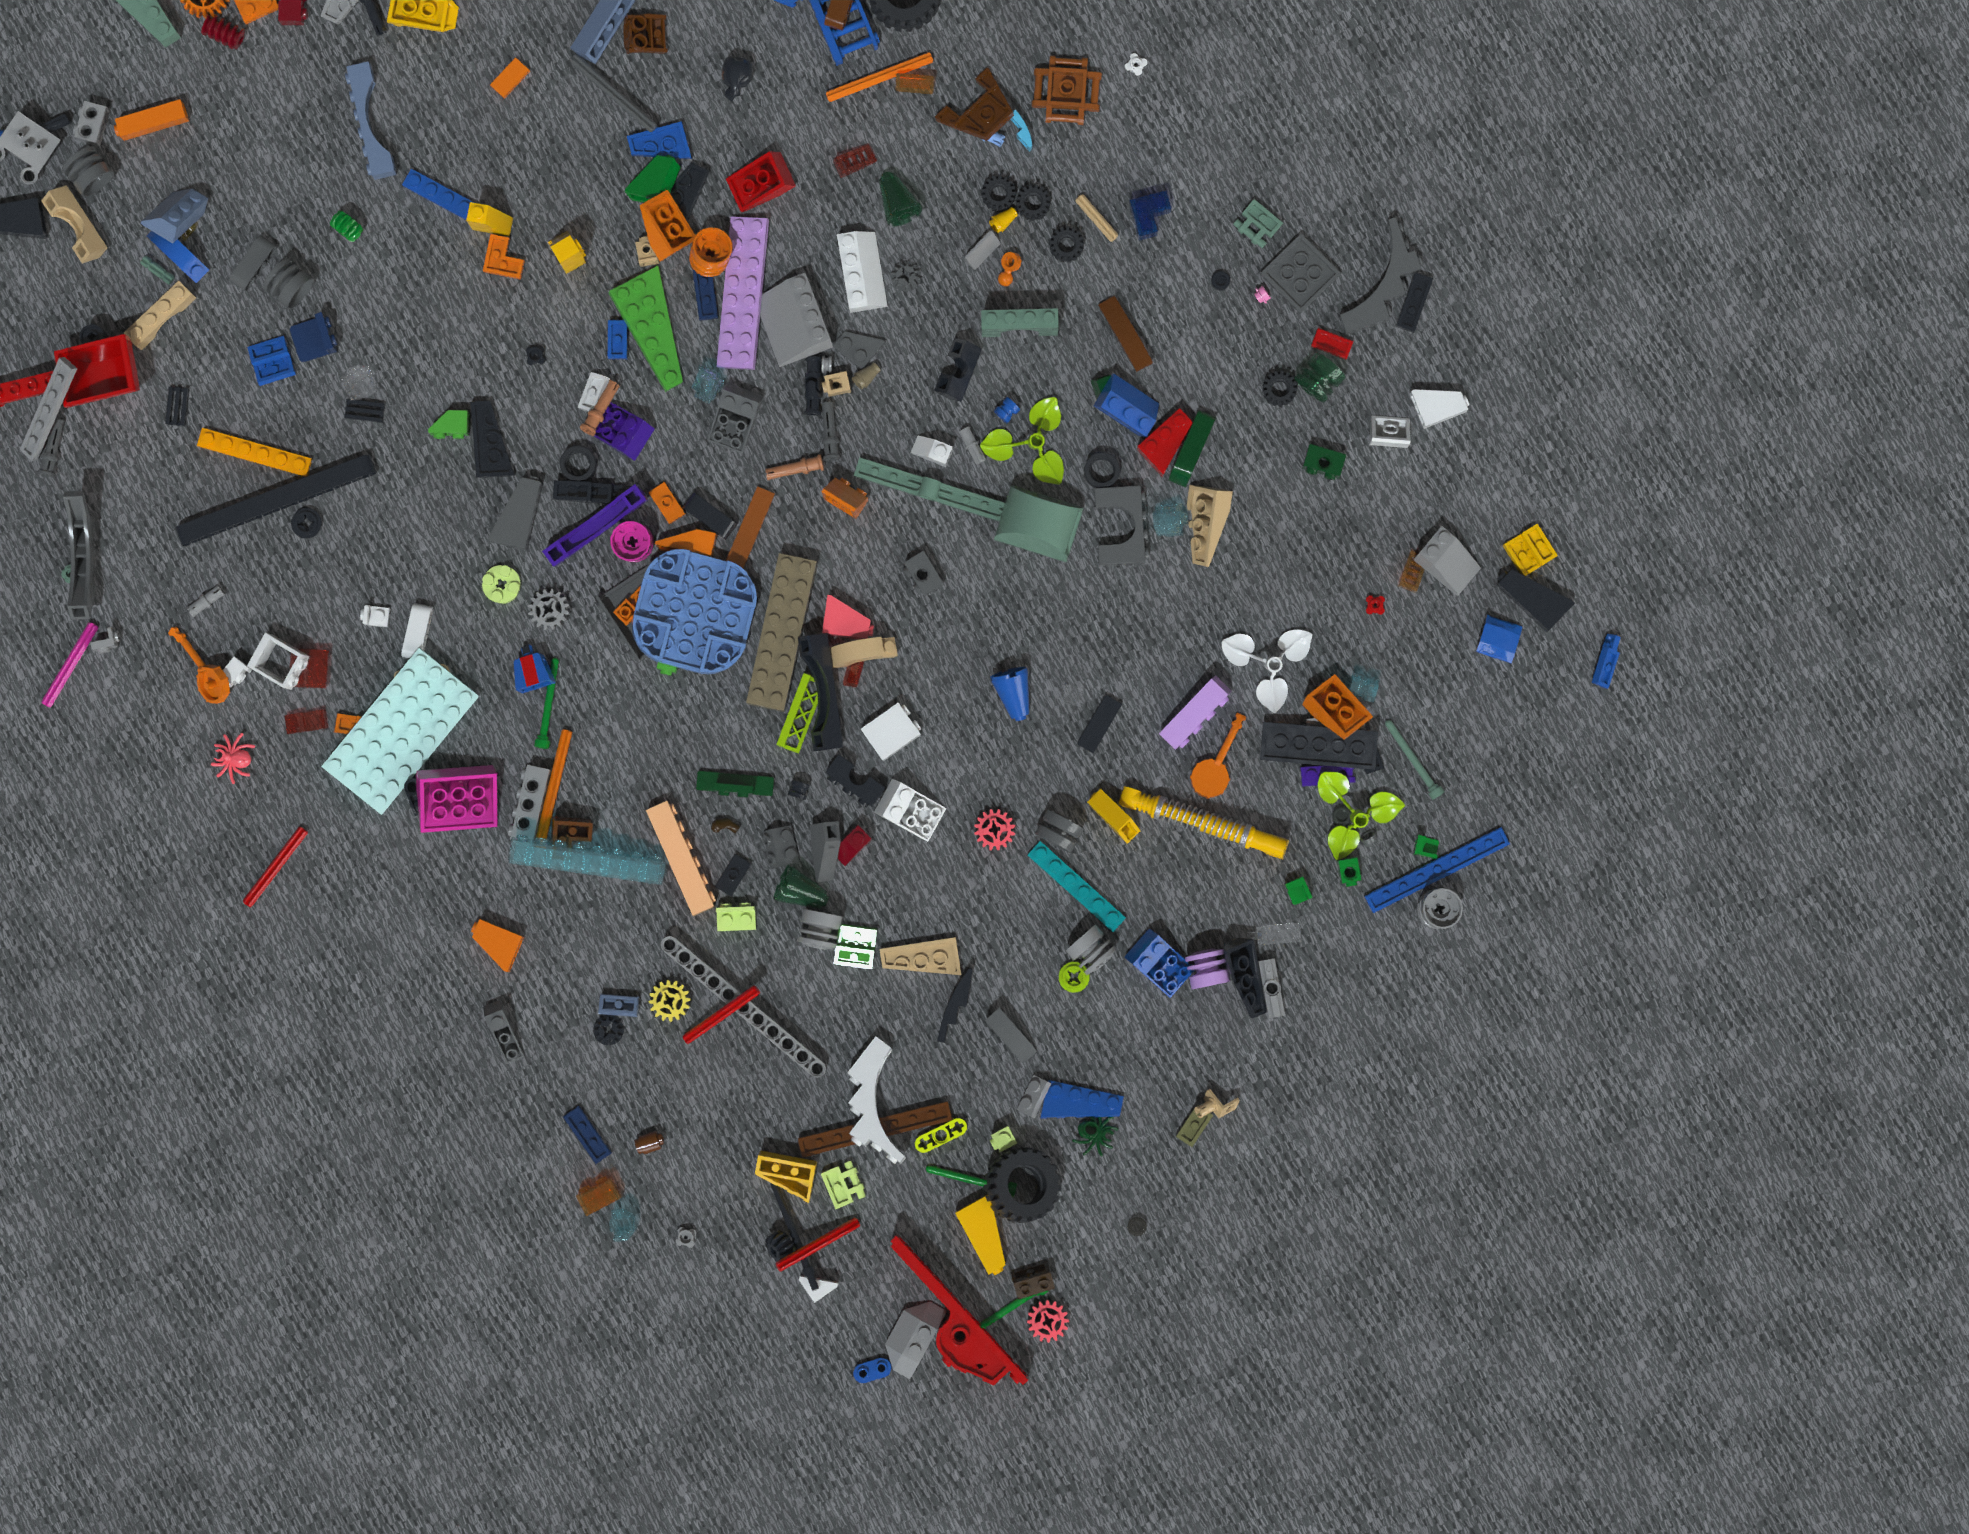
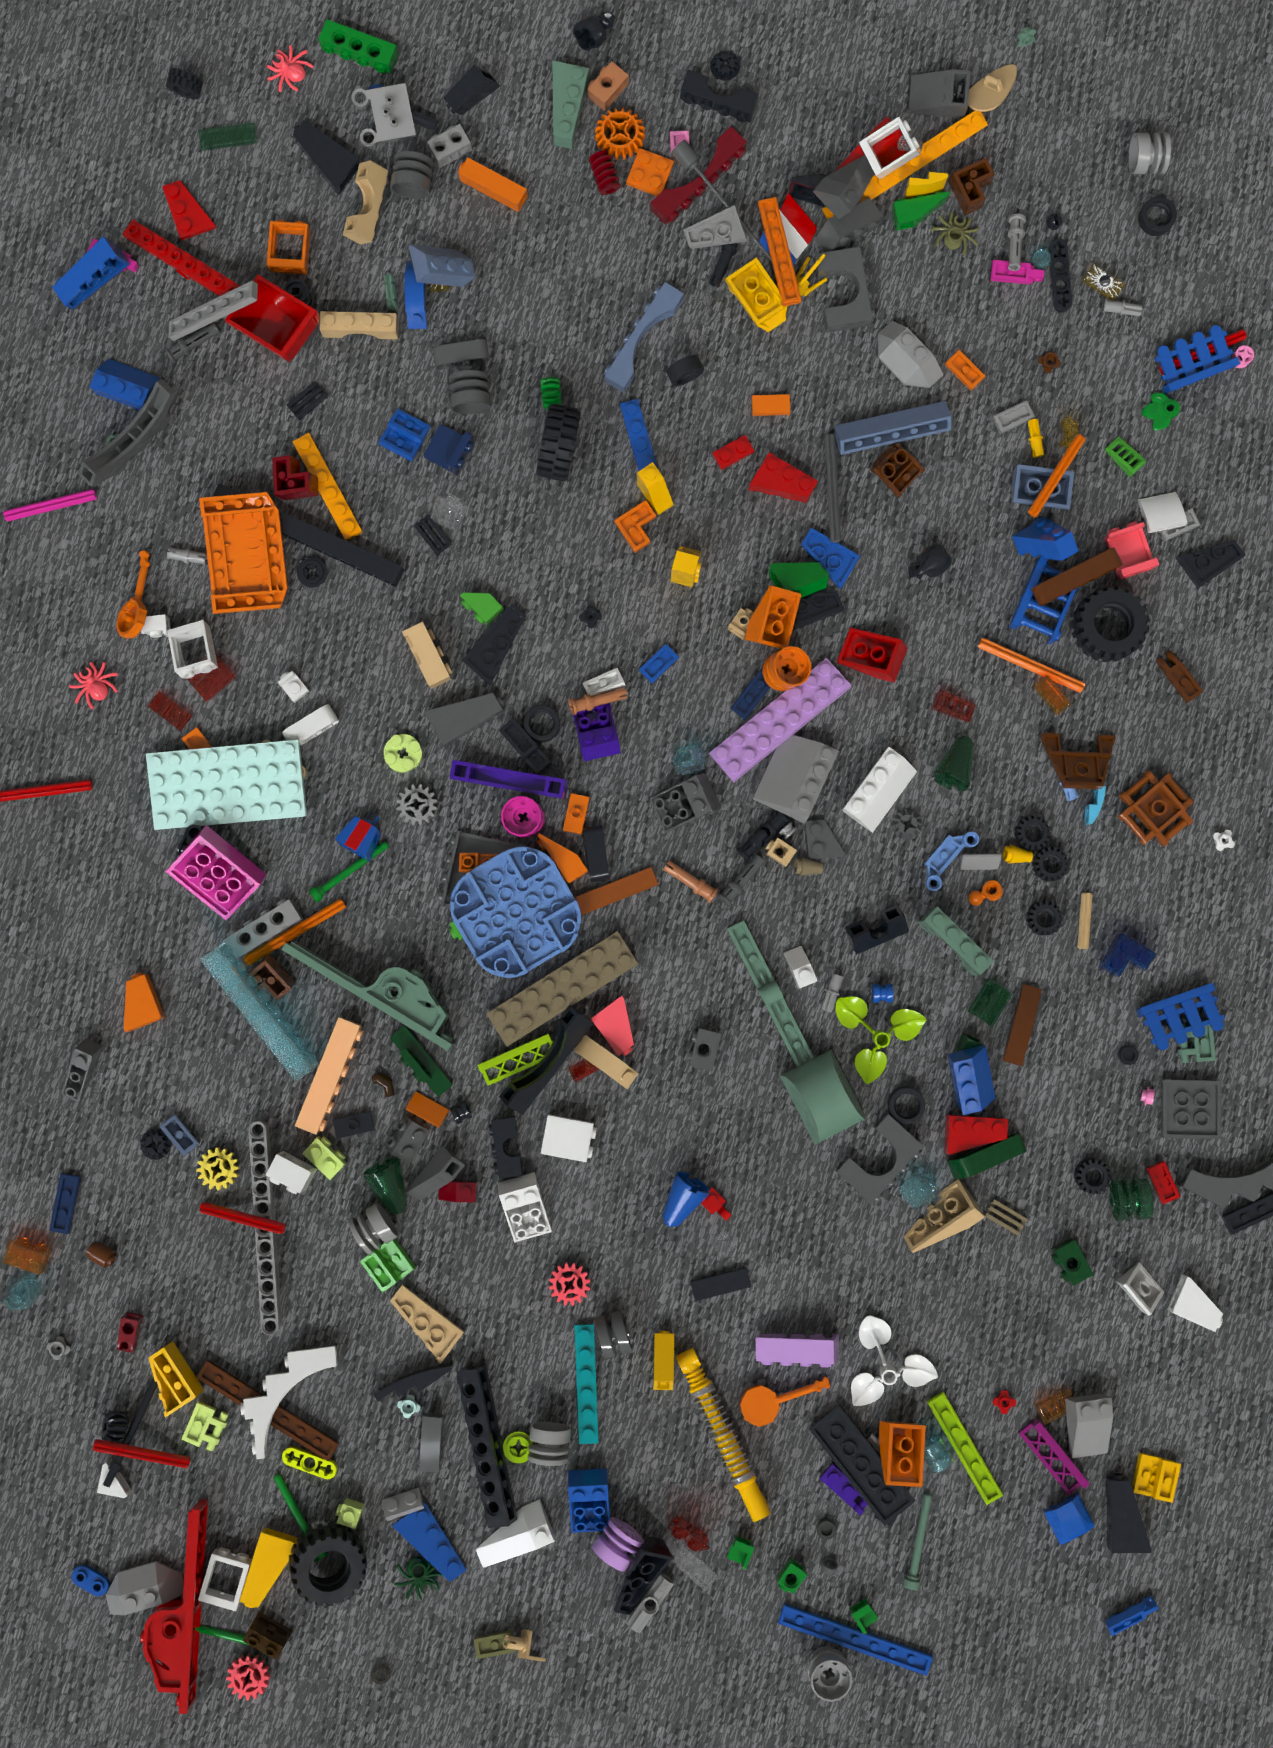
camera: 40 degrees right, 0 degrees up
(36, 525) = (123, 384): none -> blue slope
(62, 326) = (288, 265): none -> orange window
(66, 69) = (470, 90): none -> black slope
(105, 645) = (96, 518): light grey bracket -> none
(226, 475) = (289, 482): none -> dark red brick
(245, 556) = (244, 552): none -> orange slope
(389, 255) = (558, 442): none -> black tyre
(425, 114) = (685, 370): none -> black tyre
(448, 497) = (427, 655): none -> tan wedge
(517, 138) = (733, 452): none -> red plate
(573, 122) = (782, 480): none -> red wedge
(646, 315) = (695, 669): bright green wing -> none
(686, 755) = (407, 1007): none -> sand green piece
(723, 949) = (291, 1172): none -> white brick
(724, 1175) = (129, 1332): none -> dark red leg
(773, 812) = (427, 1109): none -> orange slope
(844, 497) = (705, 938): orange slope -> none
(946, 1256) = (217, 1597): none -> white window
(953, 270) = (944, 856): none -> medium blue plate
(967, 1022) = (410, 1400): none -> light aqua plate
(1037, 673) = (714, 1203): none -> red plate
(1047, 987) = (493, 1454): none -> black brick
(1088, 341) = (990, 1002): none -> clear green panel
(1135, 1033) = (525, 1535): none -> white wedge
(1221, 222) = (1190, 1011): none -> blue fence
(1253, 915) = (694, 1542): none -> clear red hinge
(1264, 473) = (1019, 1225): none -> dark tan tile
(1380, 664) = (964, 1448): none -> lime tile
(1383, 809) = (861, 1555): lime plant -> none
(1449, 601) = (1054, 1447): none -> magenta fence

